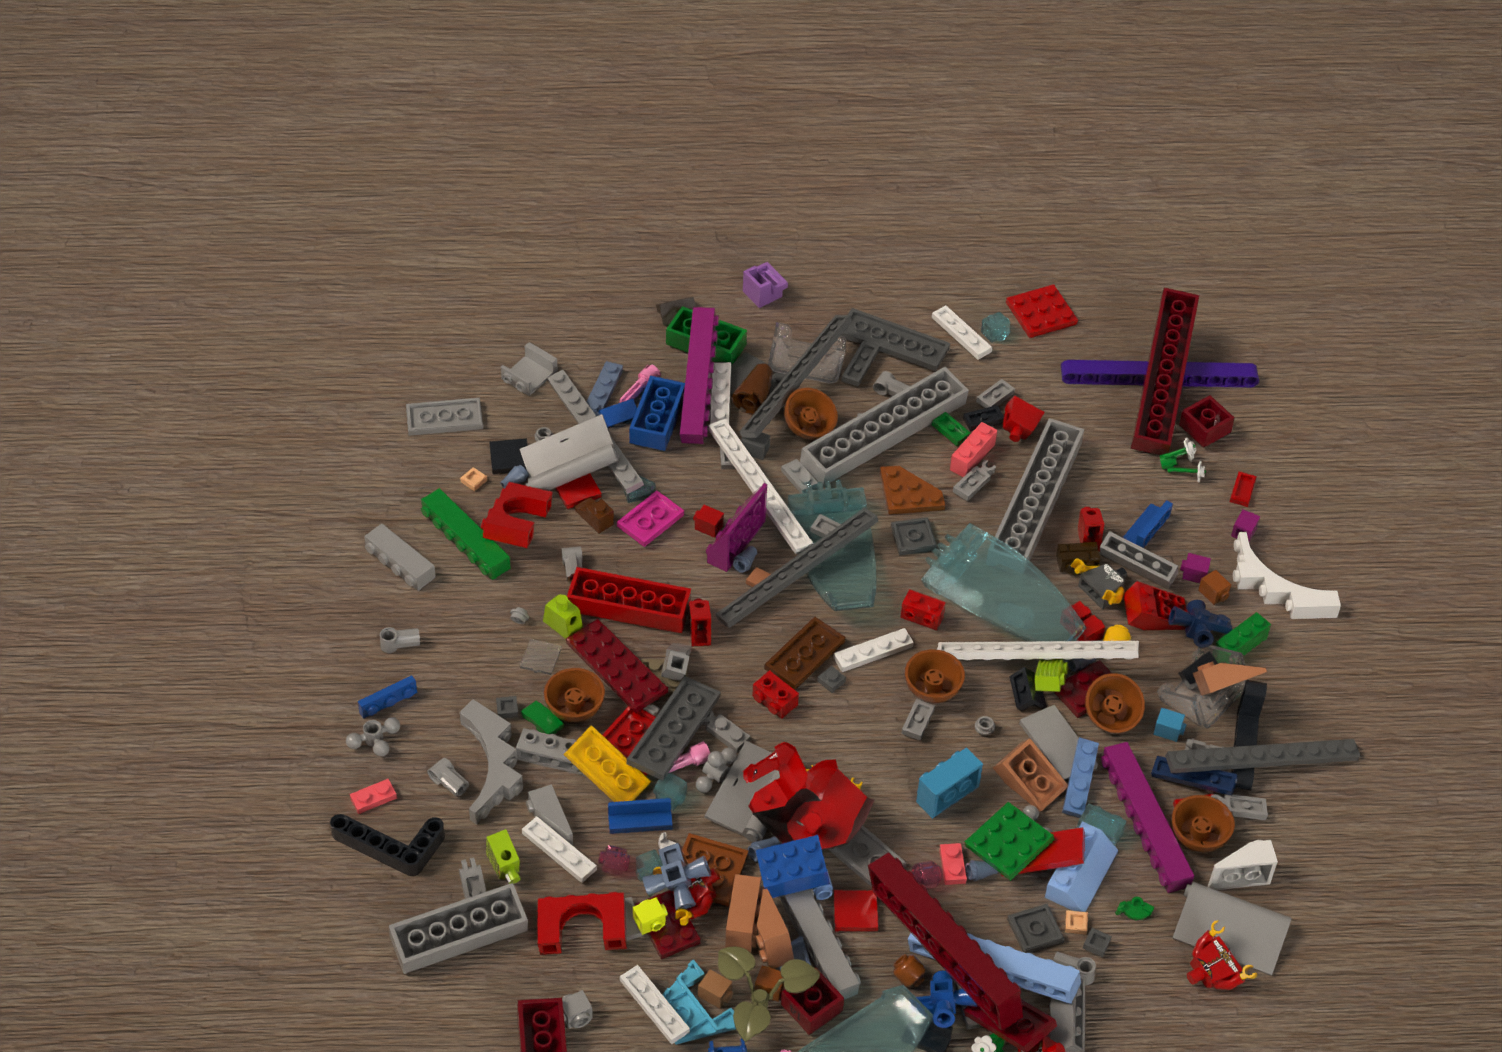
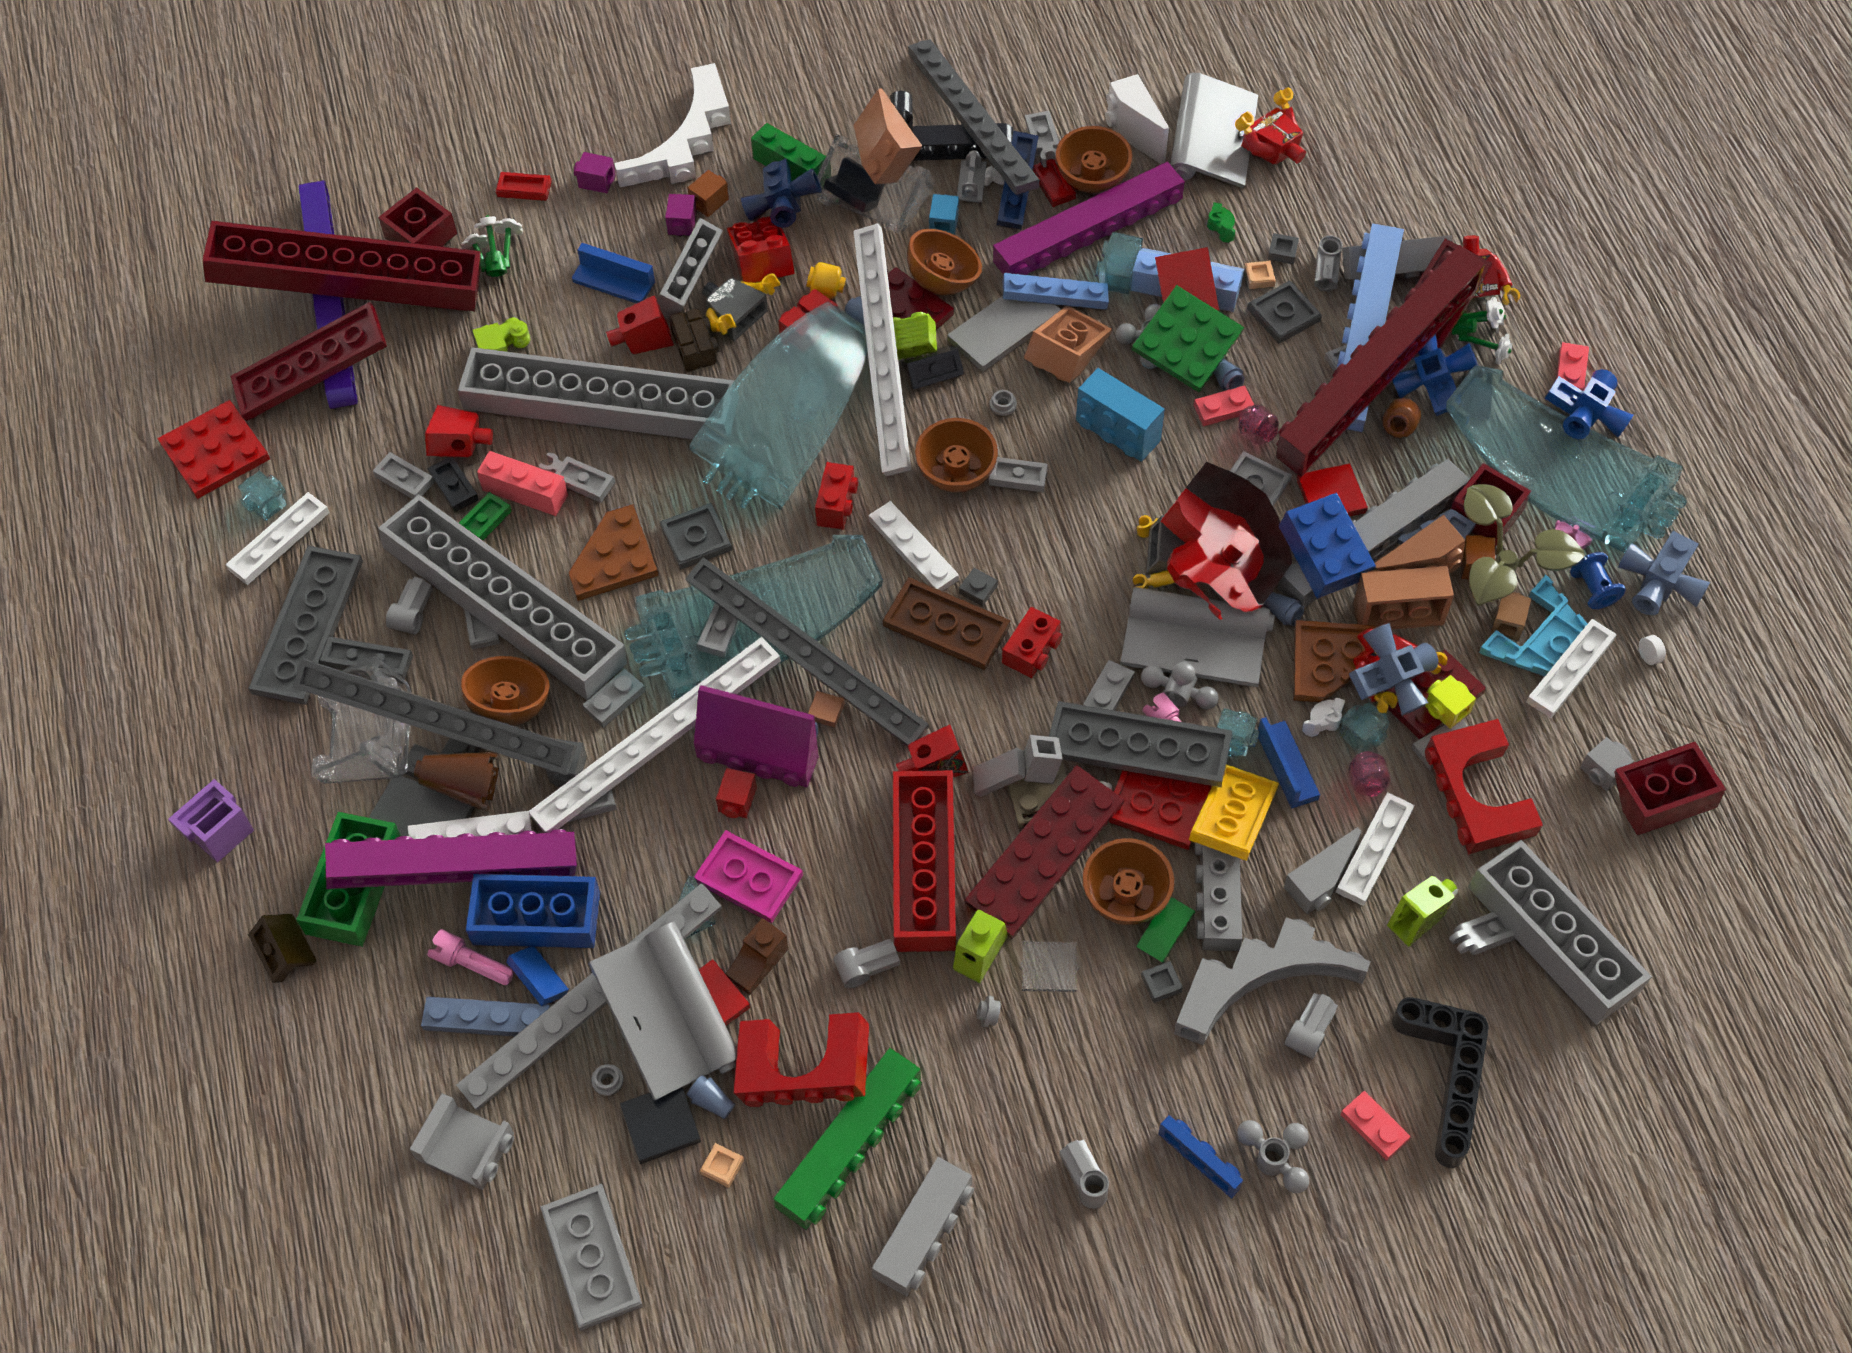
camera: 100 degrees left, 10 degrees up
(1092, 351) = (308, 361): none -> dark red plate
(1097, 451) = (501, 336): none -> lime brick

